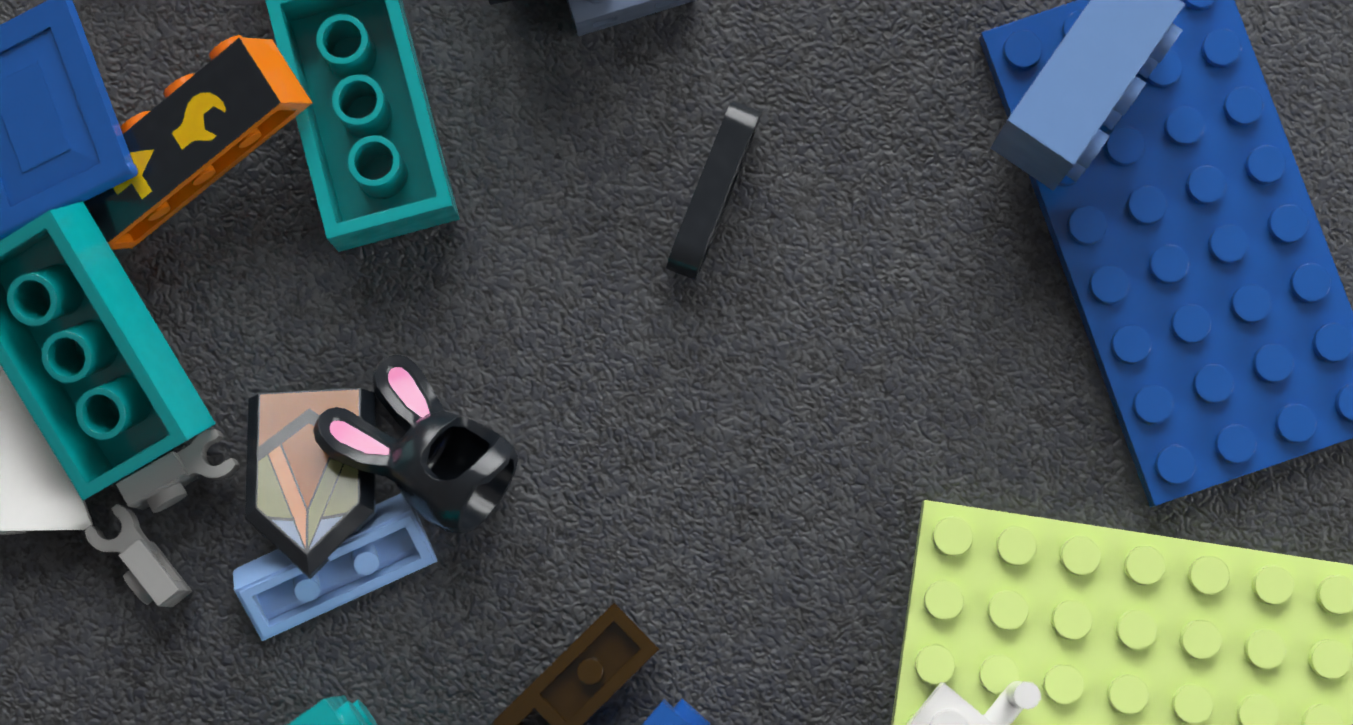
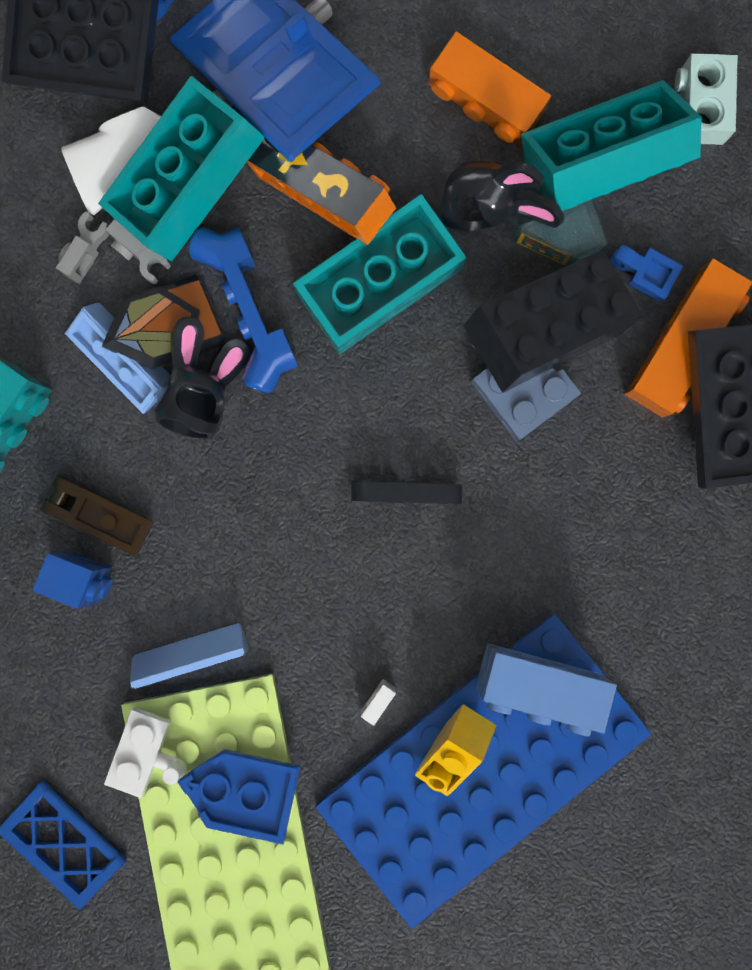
camera: 65 degrees right, 5 degrees up
(243, 327) = (231, 255): none -> blue plate
(847, 621) = (188, 655): none -> light blue slope
(1023, 348) = (378, 702): none -> white tile
(1096, 604) = (243, 794): none -> blue tile
(1139, 248) = (456, 751): none -> yellow slope

